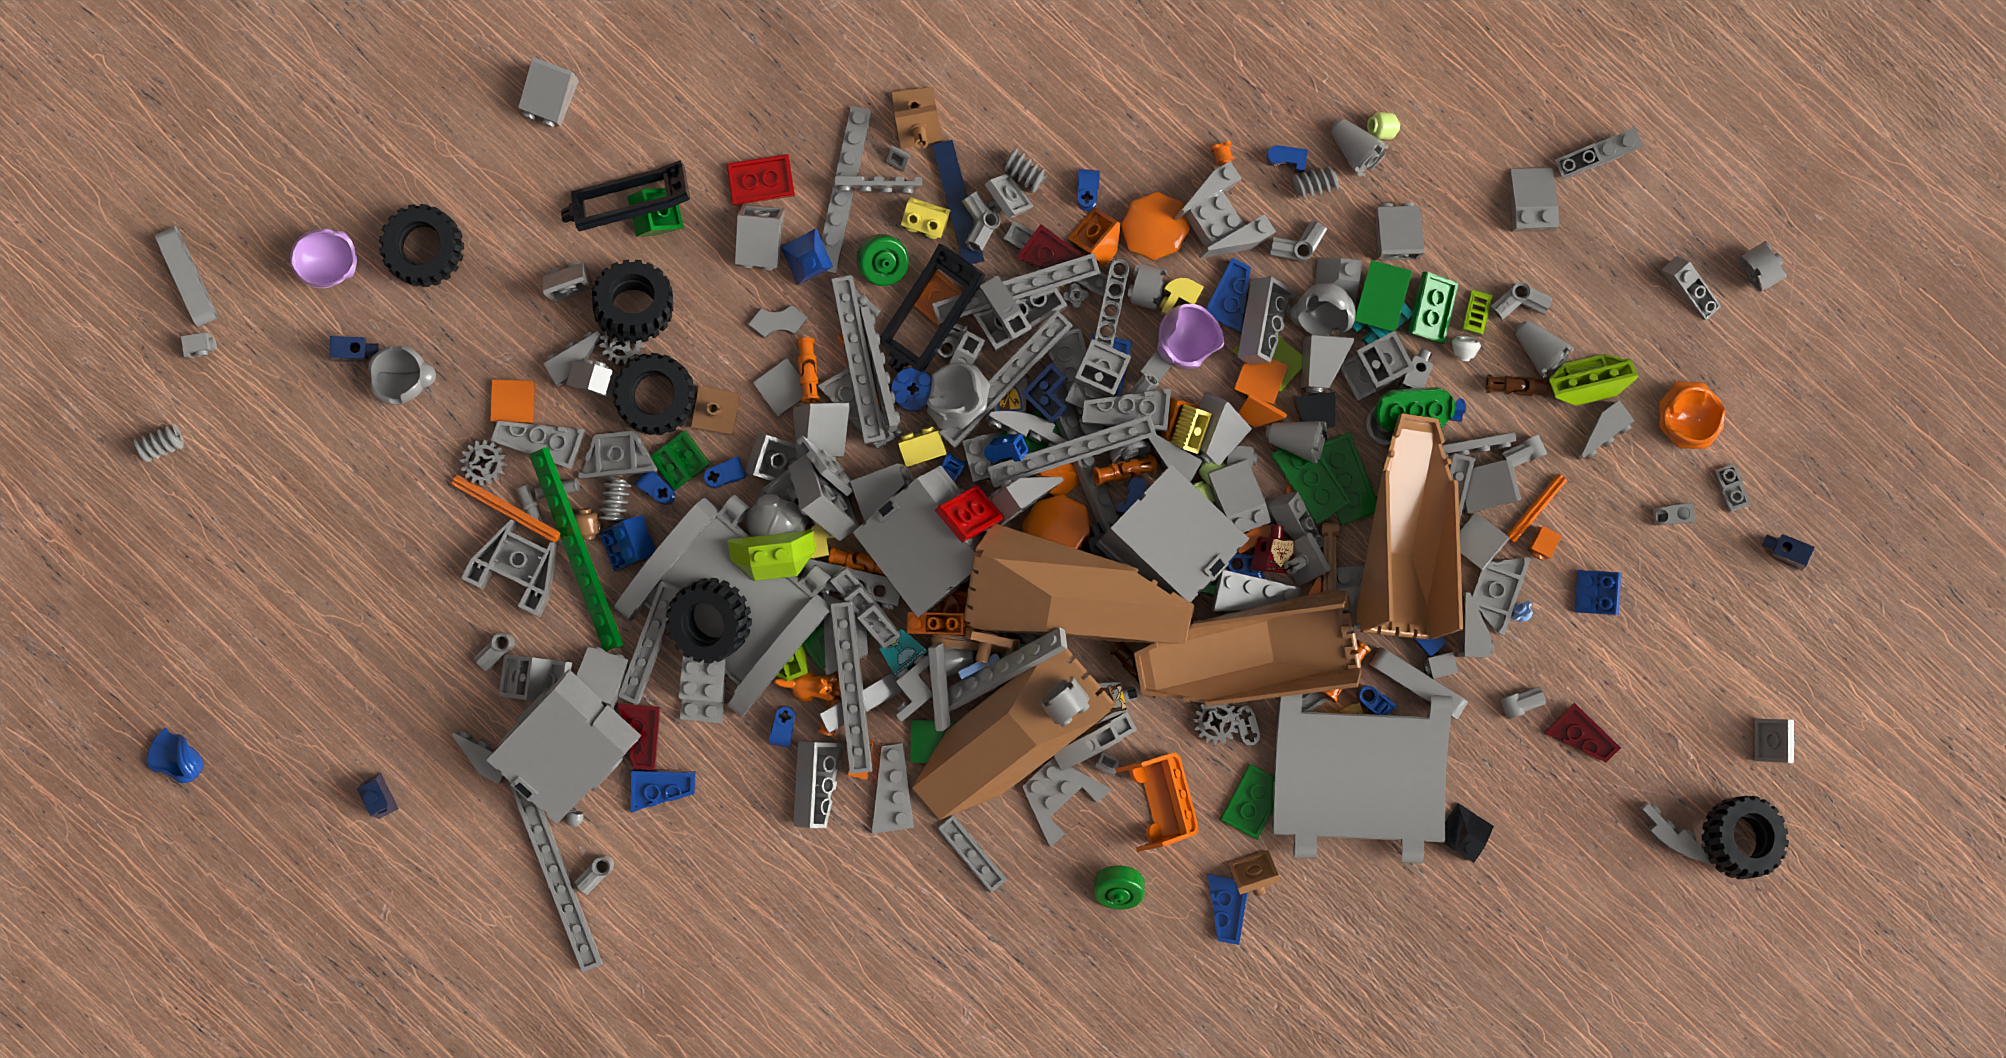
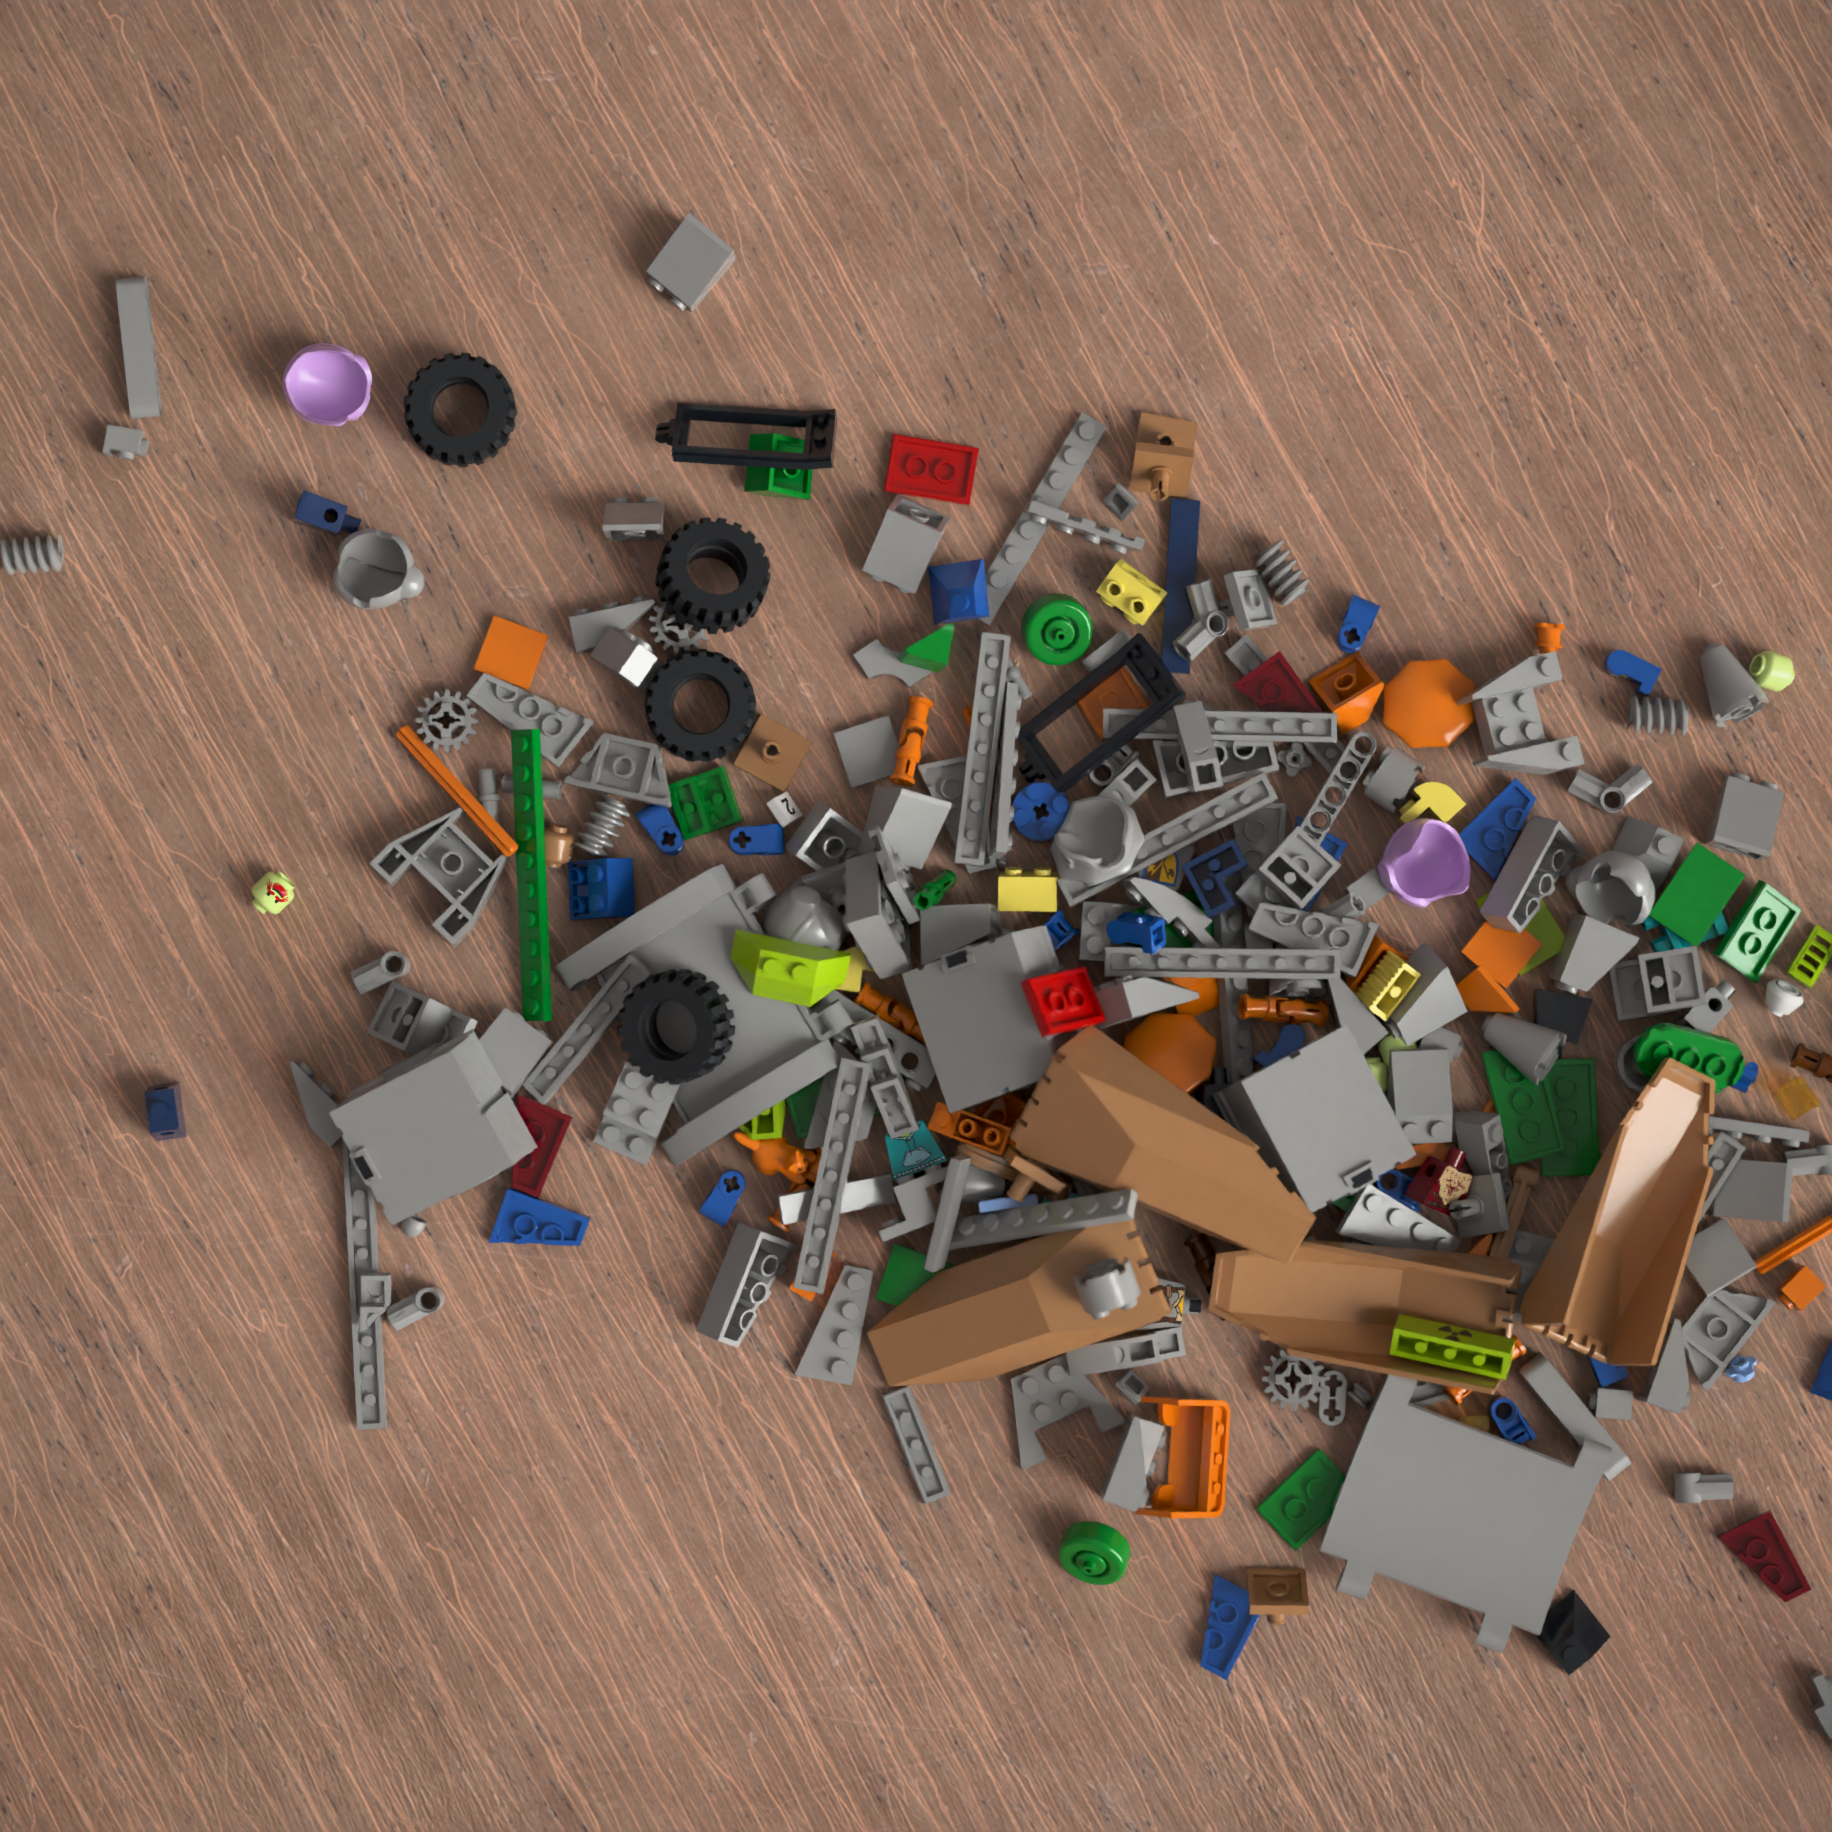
camera: 10 degrees right, 0 degrees up
(402, 621) = (272, 892): none -> yellowish green head
(564, 876) = (374, 1297): none -> light grey slope
(736, 446) = (784, 809): none -> white tile
(800, 304) = (930, 652): none -> green slope
(857, 467) = (934, 890): none -> green pin
(921, 263) = (1106, 650): none -> light grey beam
(1124, 816) = (1132, 1462): none -> light grey slope
(1266, 718) = (1360, 1396): none -> light grey bush
(1318, 663) = (1452, 1346): none -> lime brick
(1498, 413) = (1796, 1097): none -> clear yellow panel

